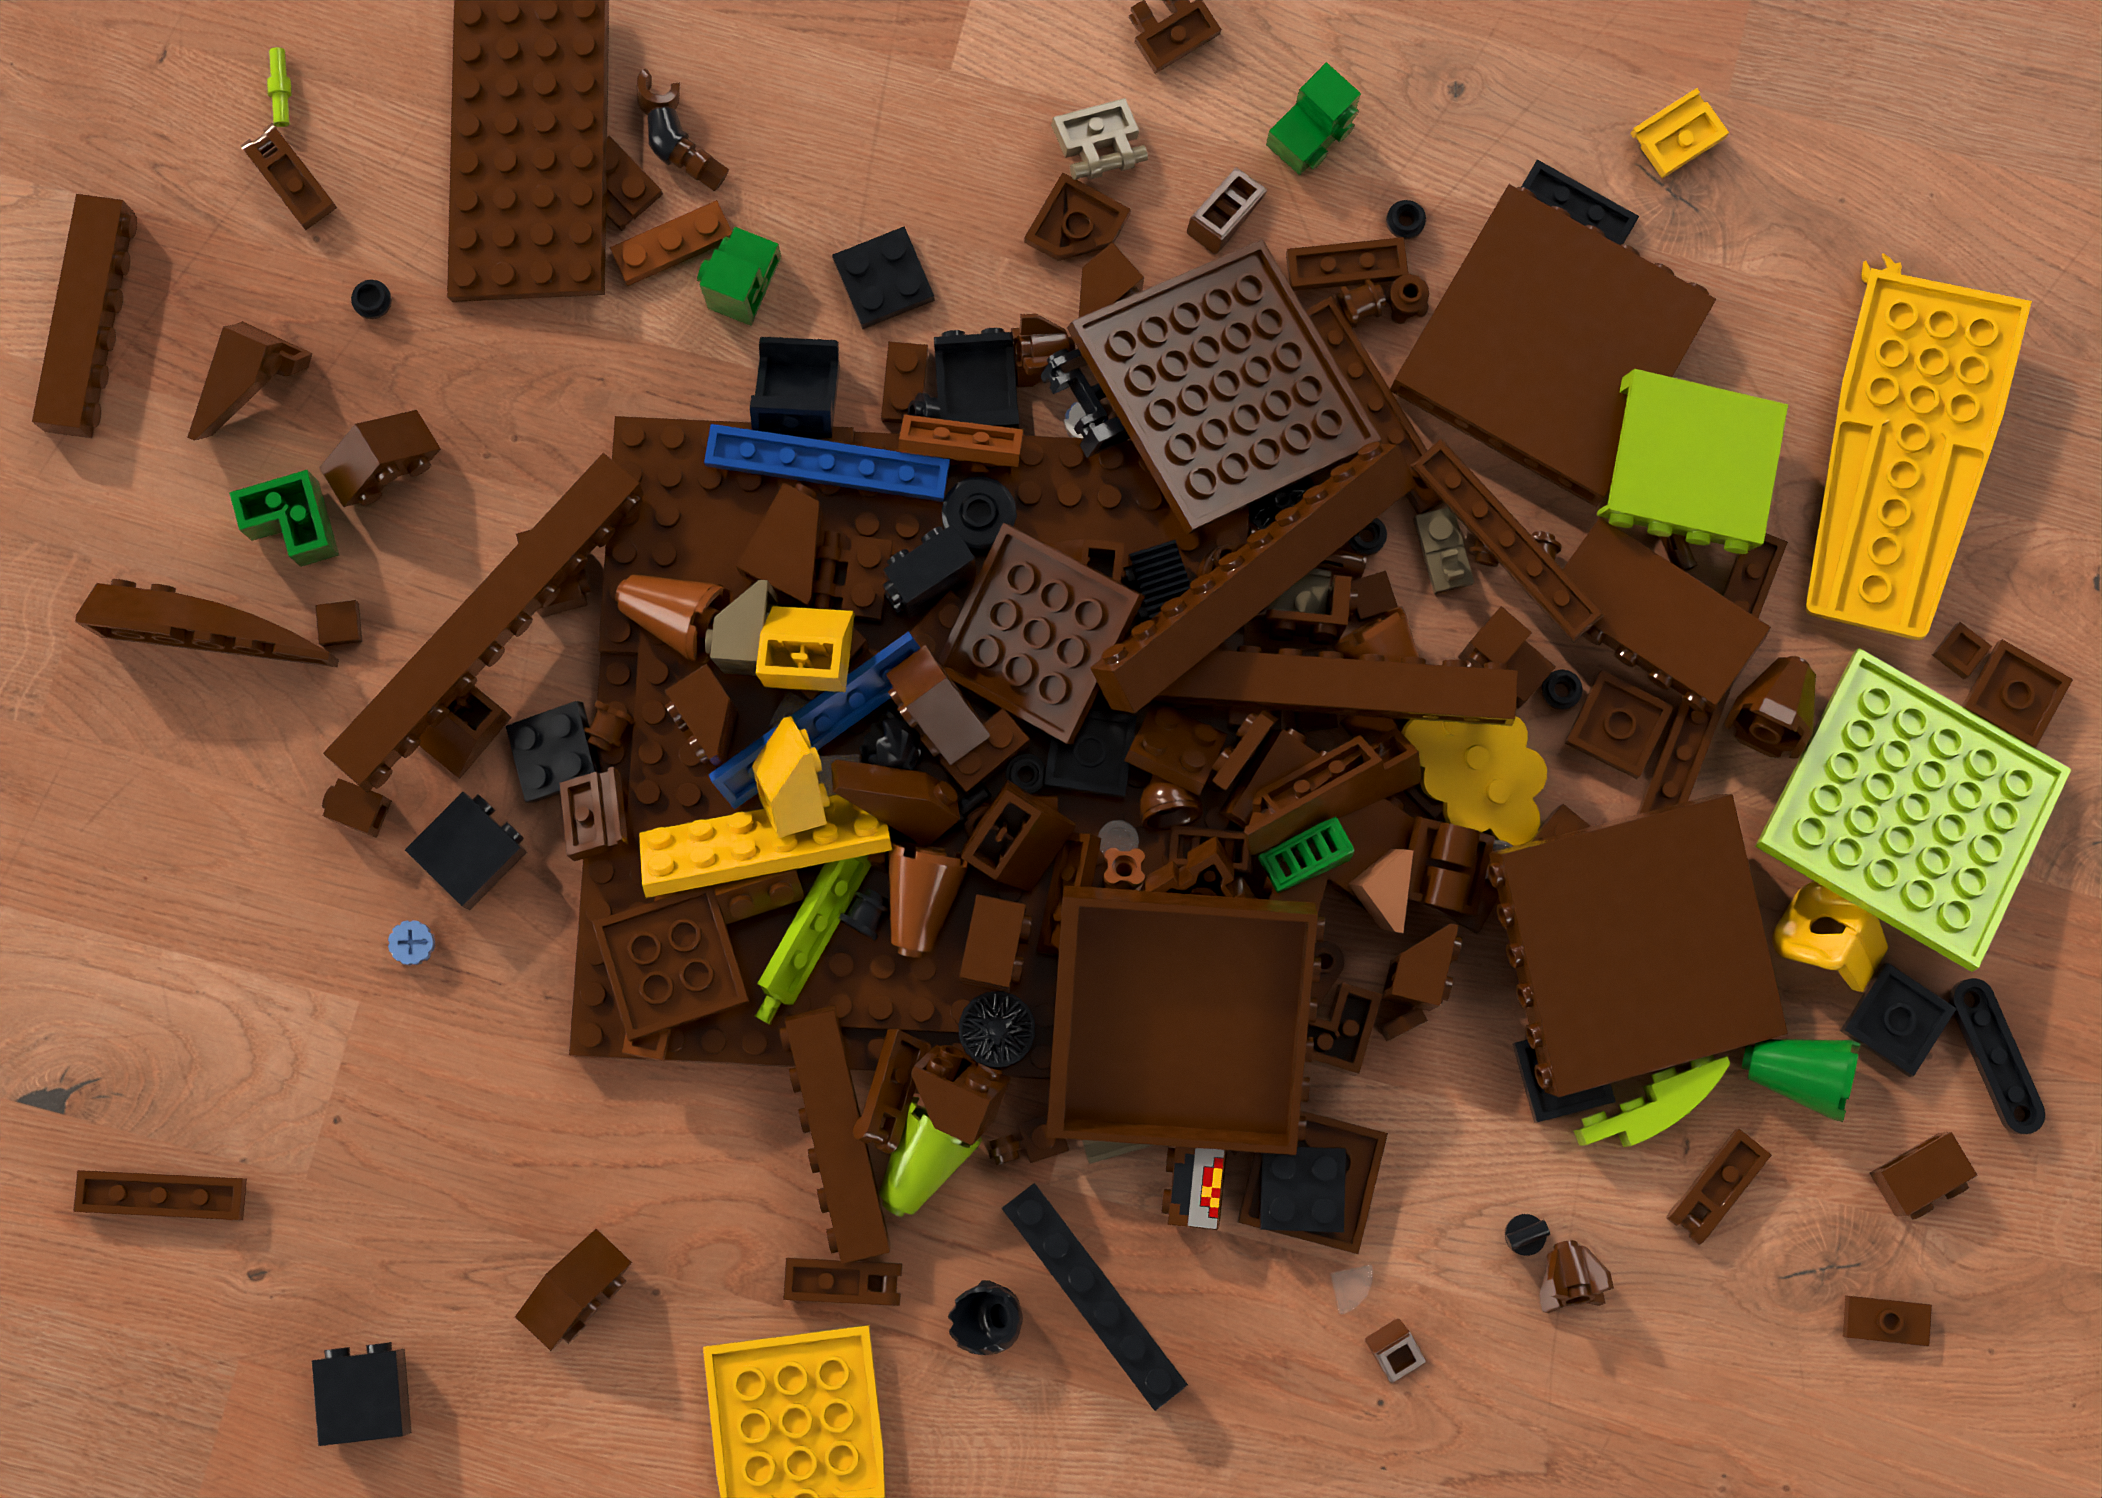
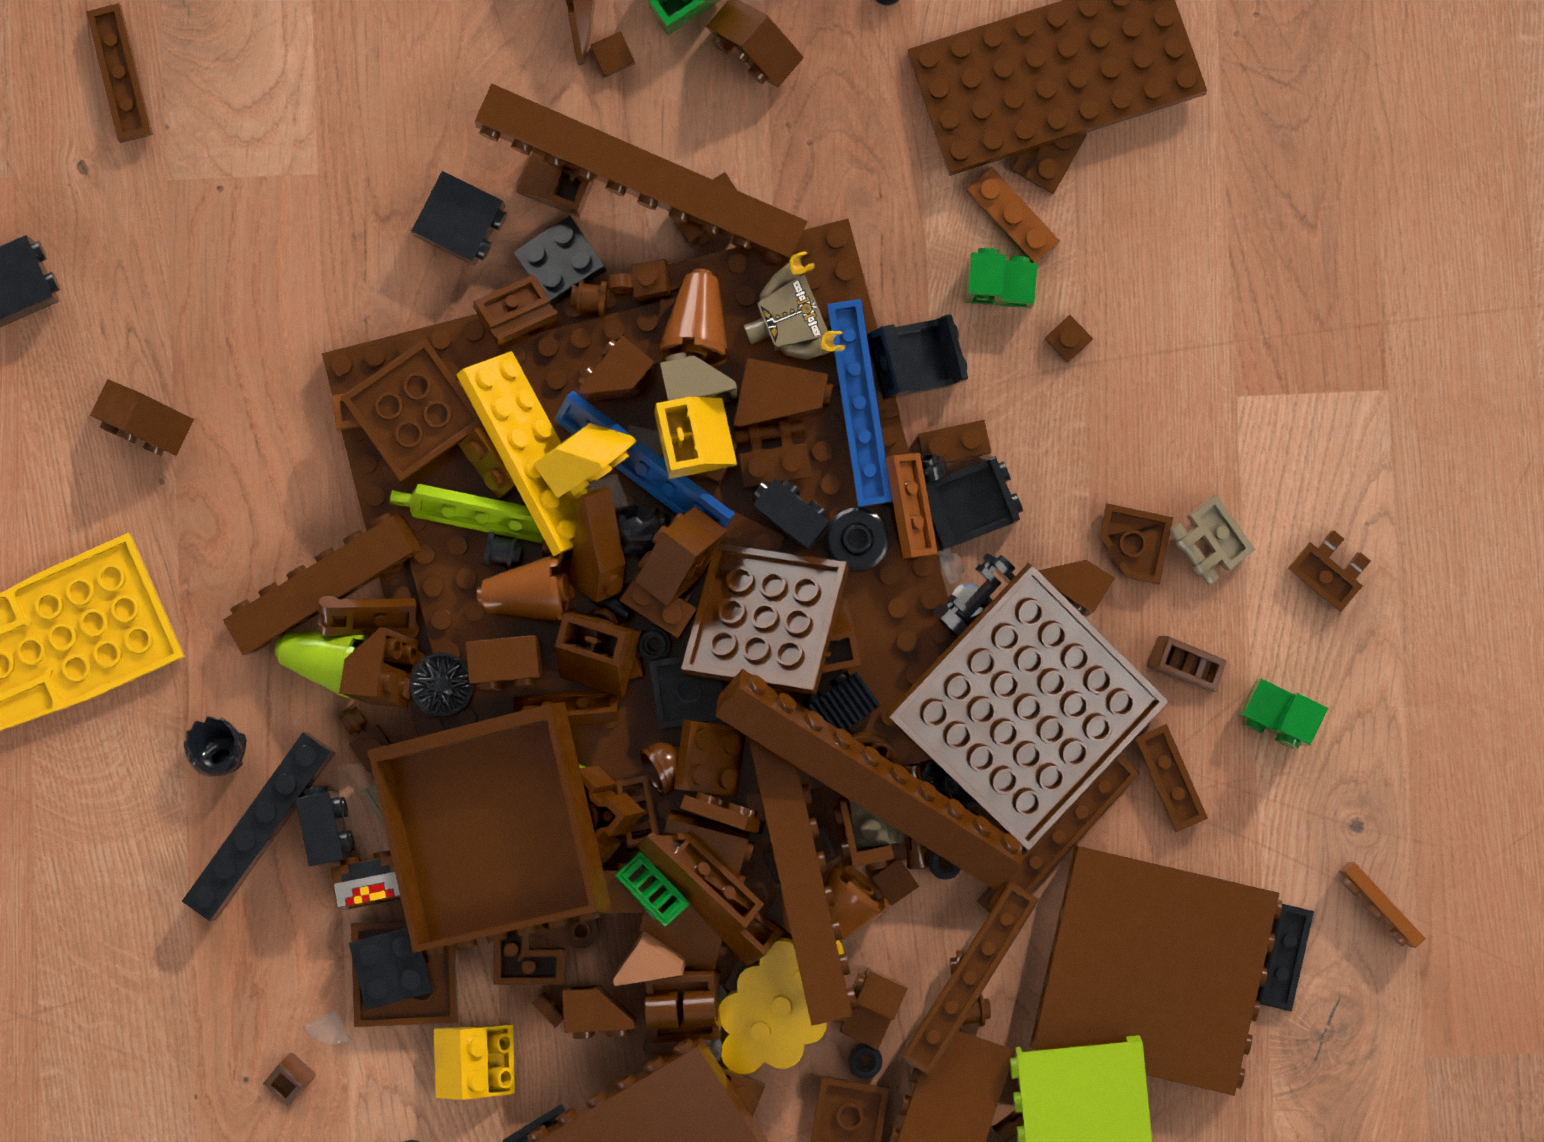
camera: 75 degrees right, 5 degrees up
(355, 808) = (462, 118): reddish brown brick -> none
(411, 942) = (374, 200): medium blue piece -> none
(610, 656) = (647, 280): none -> reddish brown plate
(669, 139) = (1098, 184): reddish brown piece -> none
(704, 504) = (792, 315): none -> dark tan torso
(828, 225) = (1068, 338): none -> reddish brown plate
(840, 1283) = (207, 614): reddish brown plate -> none
(883, 277) = (1038, 397): black plate -> none
(1034, 344) = (1016, 543): reddish brown brick -> none
(1041, 424) = (950, 566): none -> clear plate
(1118, 835) = (622, 735): clear plate -> none
(1118, 1218) = (323, 826): none -> black brick
(1124, 869) = (604, 747): dark orange brick -> none
(1361, 302) = (1141, 800): reddish brown brick -> none
(1406, 307) = (1146, 836): reddish brown brick -> none
(1410, 209) = (1237, 816): black plate -> none
(1437, 1128) = (474, 1061): none -> yellow slope
(1443, 550) = (951, 929): dark tan plate -> none
(1552, 86) = (1380, 906): none -> dark orange plate
(1679, 133) = (1375, 1025): yellow plate -> none

